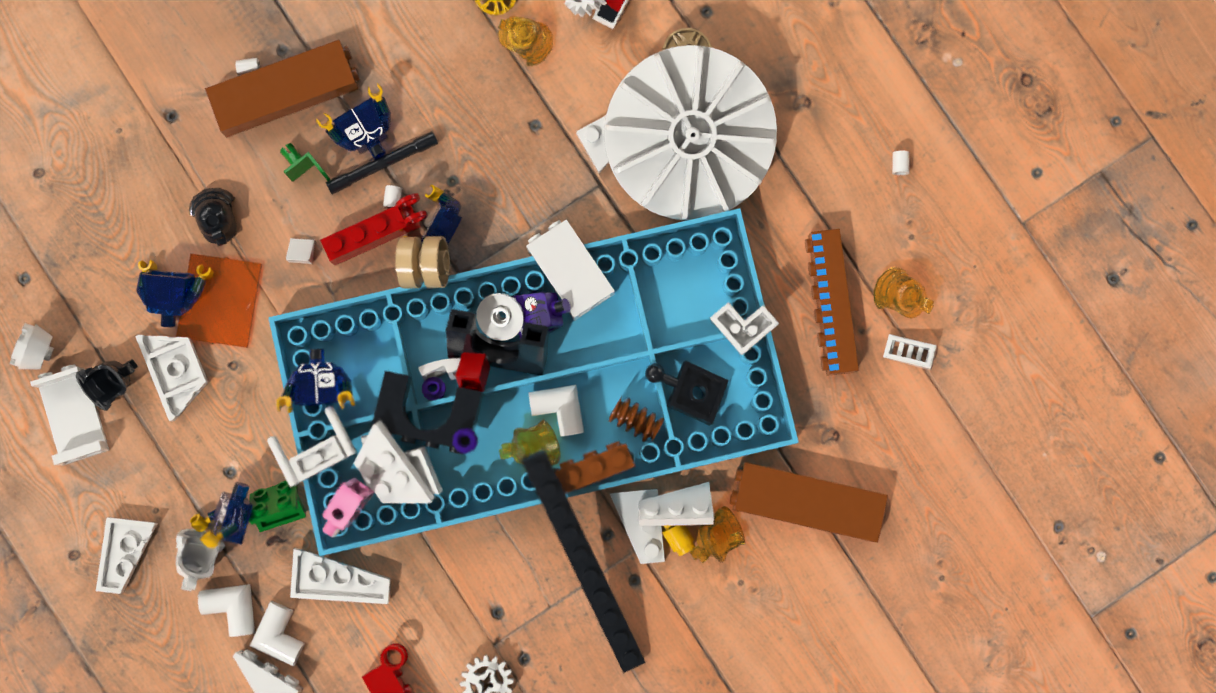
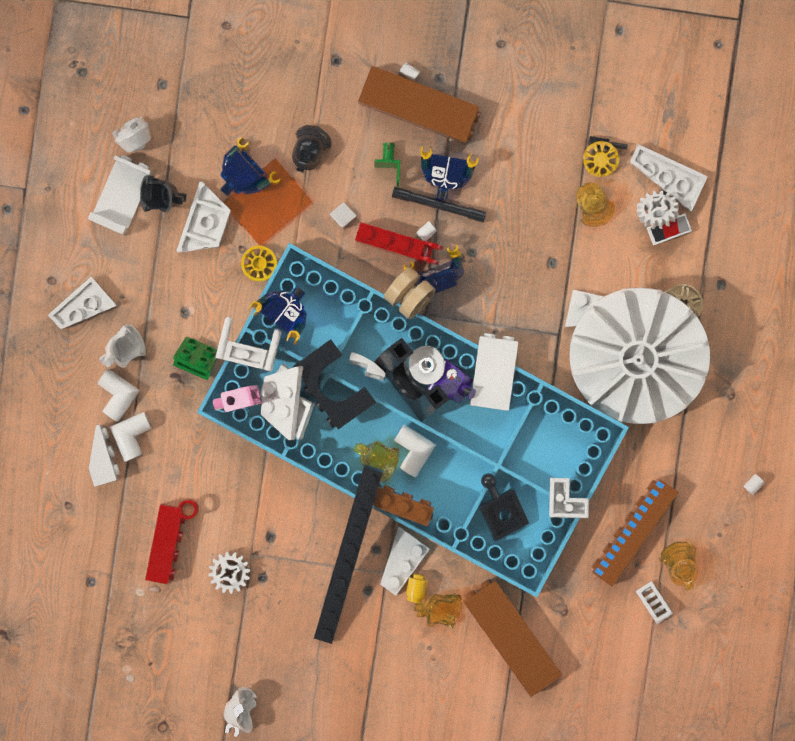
camera: 40 degrees right, 5 degrees up
(228, 520) = (161, 342): clear blue torso -> none
(258, 364) = (258, 263): none -> yellow wheel
(332, 580) = (192, 434): white wing -> none
(438, 394) = (349, 378): dark purple plate -> none
(459, 435) = (337, 428): dark purple plate -> none
(473, 371) = (381, 384): red panel -> none
(636, 419) = (453, 497): dark orange piece -> none
(678, 507) = (431, 571): white wing -> none

